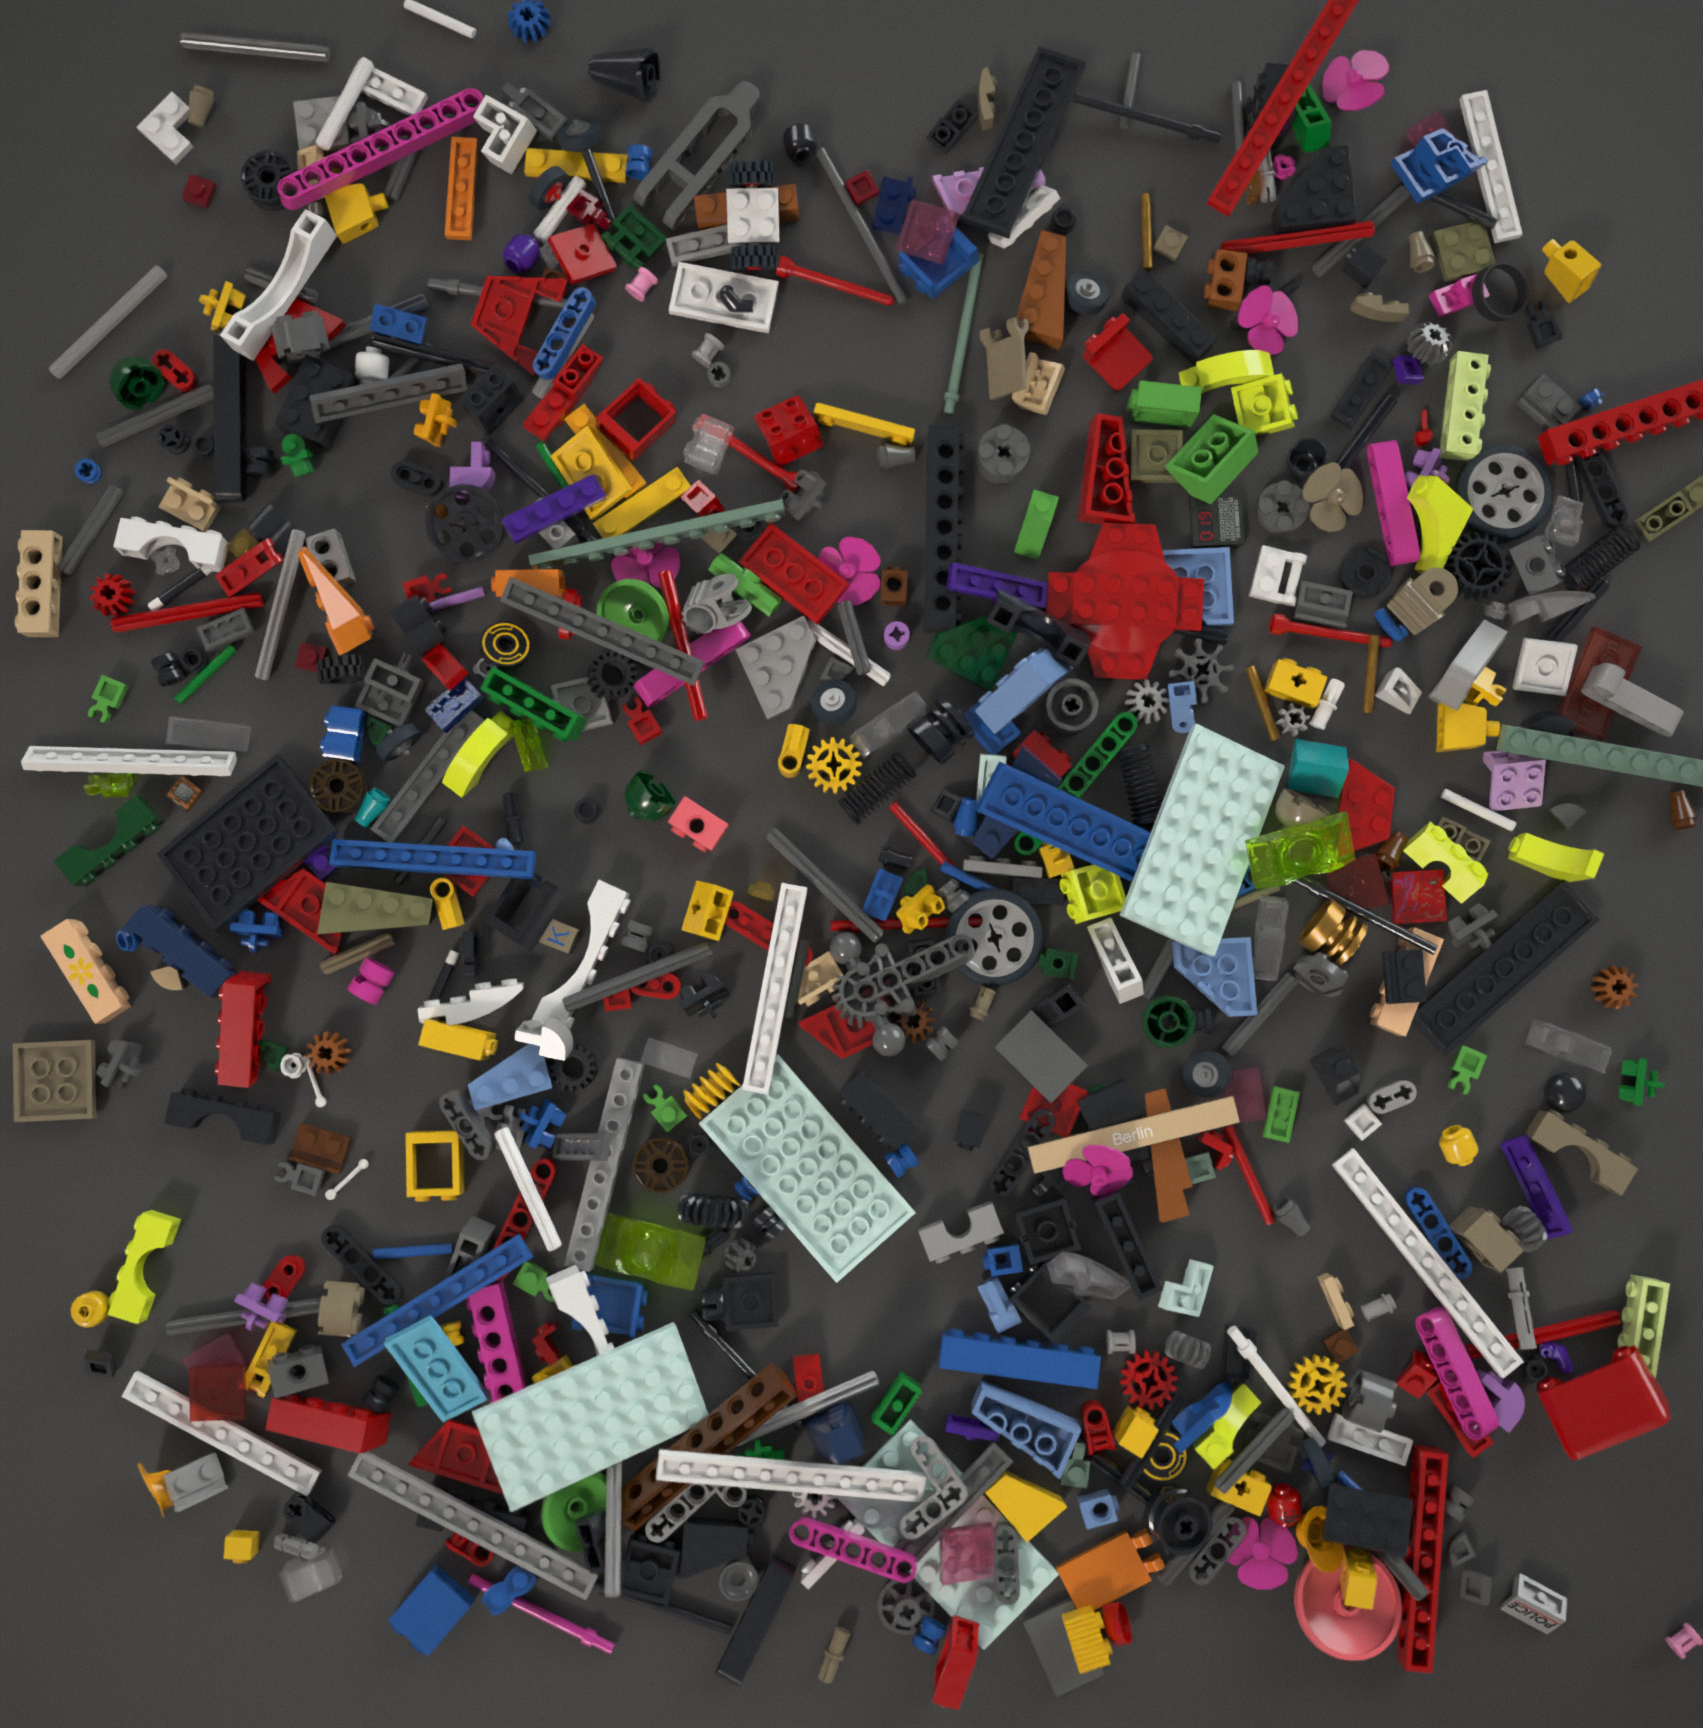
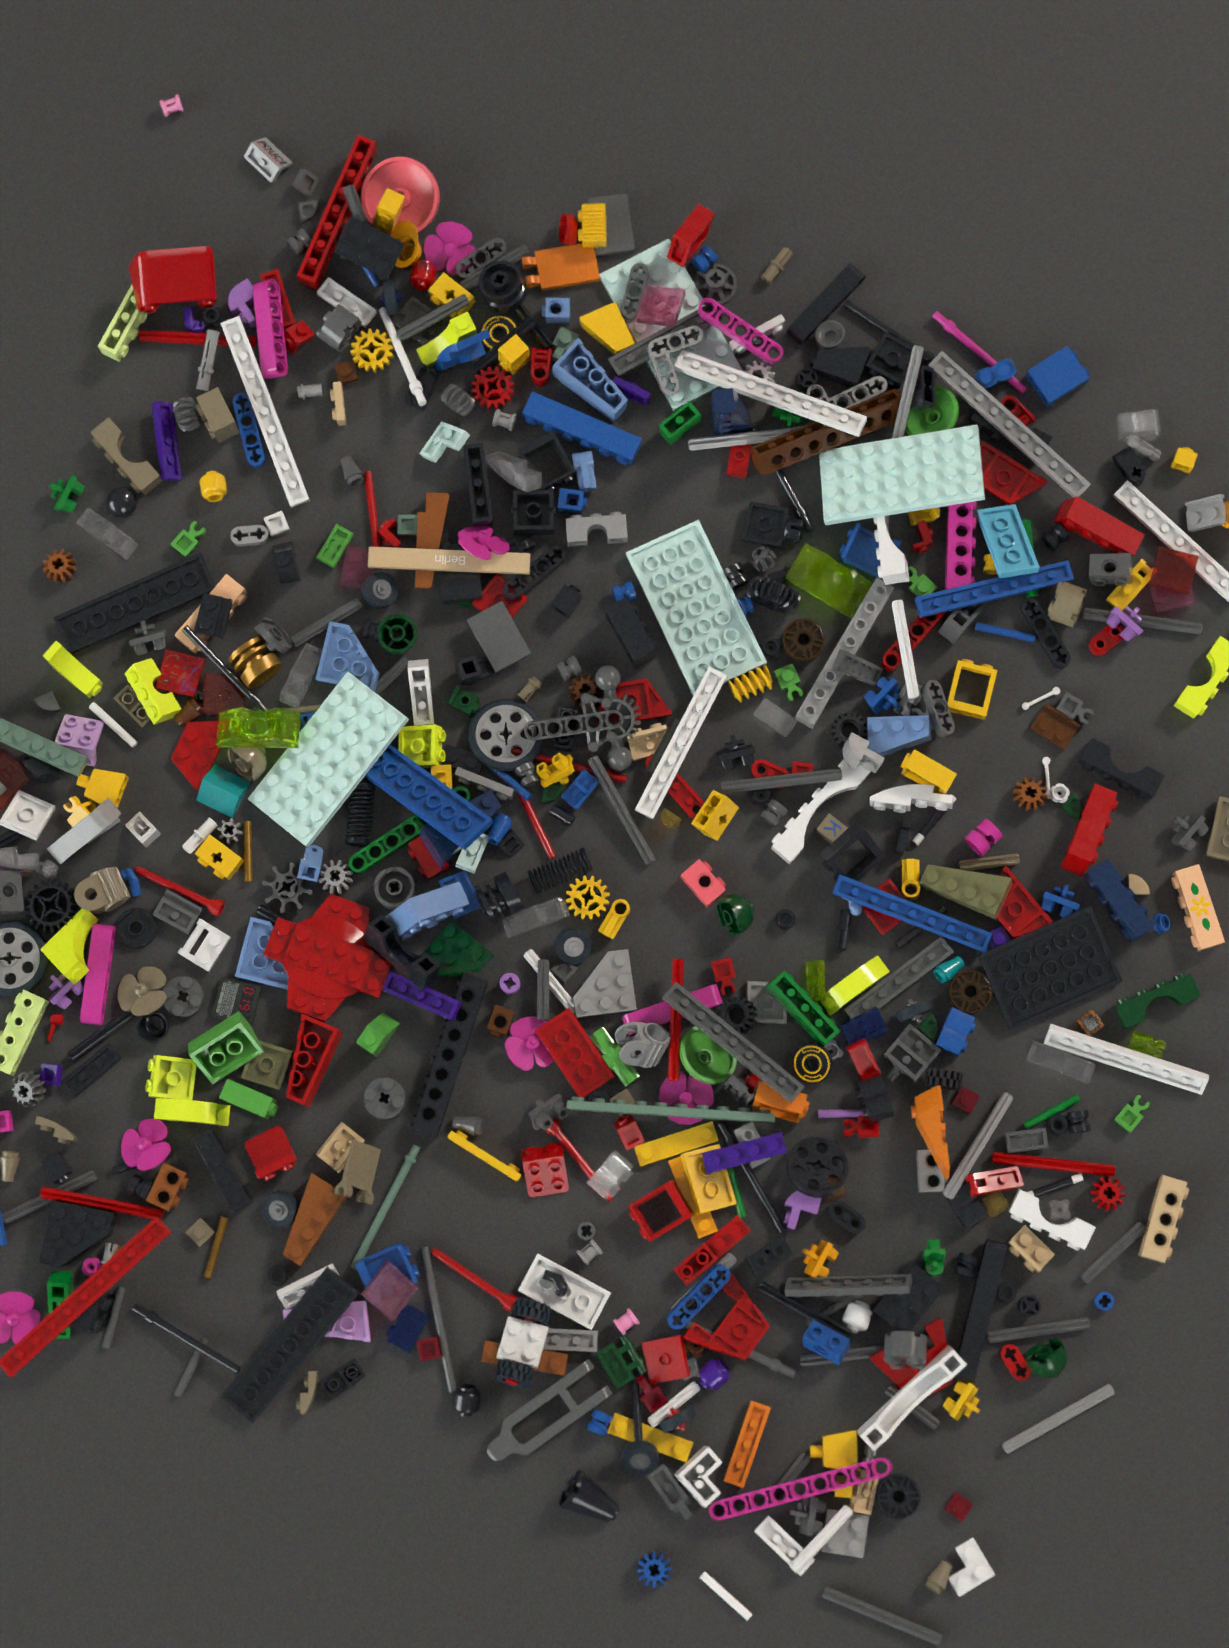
camera: 160 degrees left, 5 degrees down
(583, 586) = (737, 1089): none -> dark grey plate
(1371, 670) = (159, 848): pearl gold bar -> none

